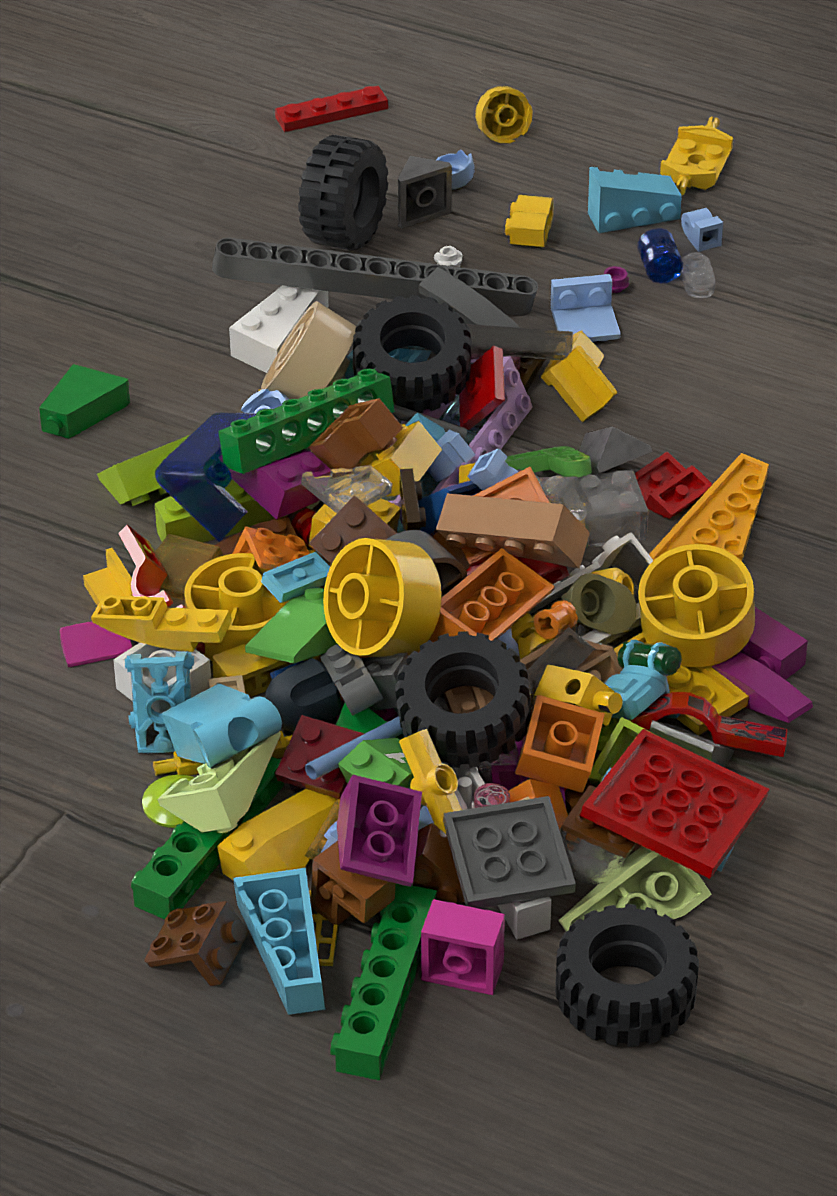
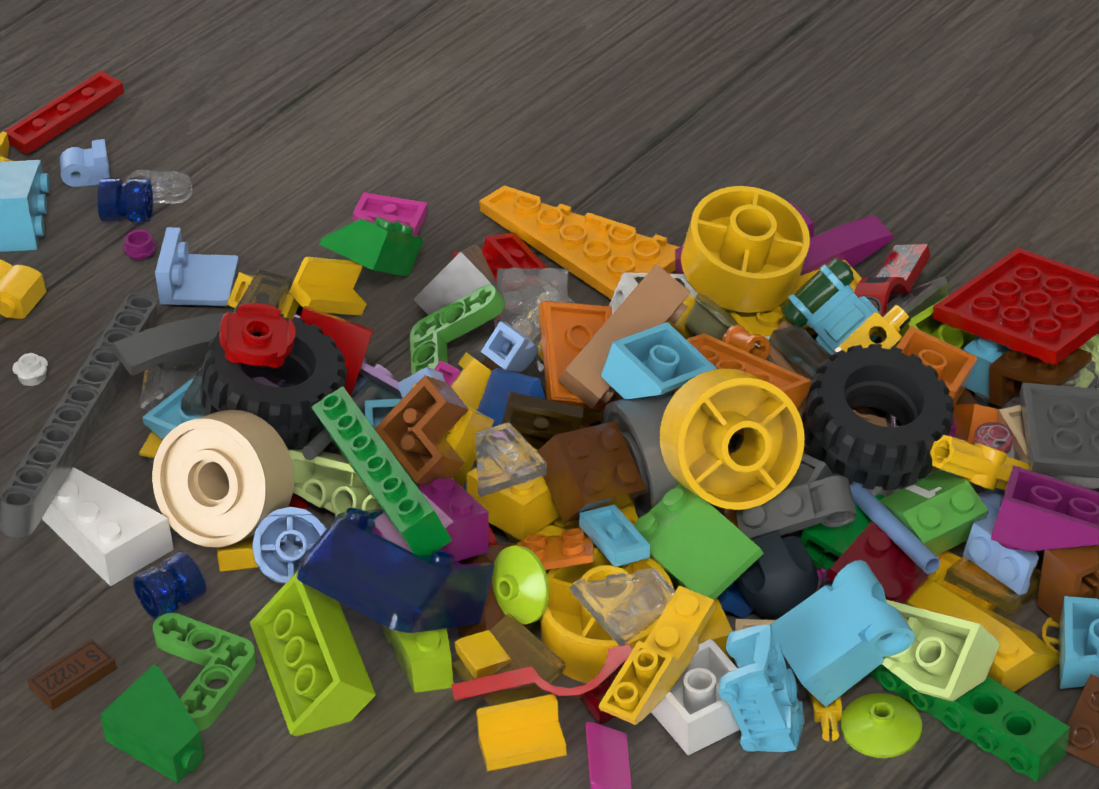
camera: 75 degrees left, 0 degrees up
(131, 354) = (72, 674): none -> reddish brown tile
(165, 425) = (215, 659): none -> bright green beam
(172, 540) = (481, 654): none -> yellow slope
(217, 589) = (625, 602): none -> clear wing
(220, 374) = (174, 583): none -> clear blue wheel
(229, 533) = (520, 584): none -> lime dish
(421, 327) = (269, 349): none -> red plate
(457, 536) = (652, 363): none -> medium azure slope
(637, 399) = (377, 245): none -> green slope
(700, 410) = (392, 209): none -> dark pink wing
(768, 201) = (64, 112): none -> red plate

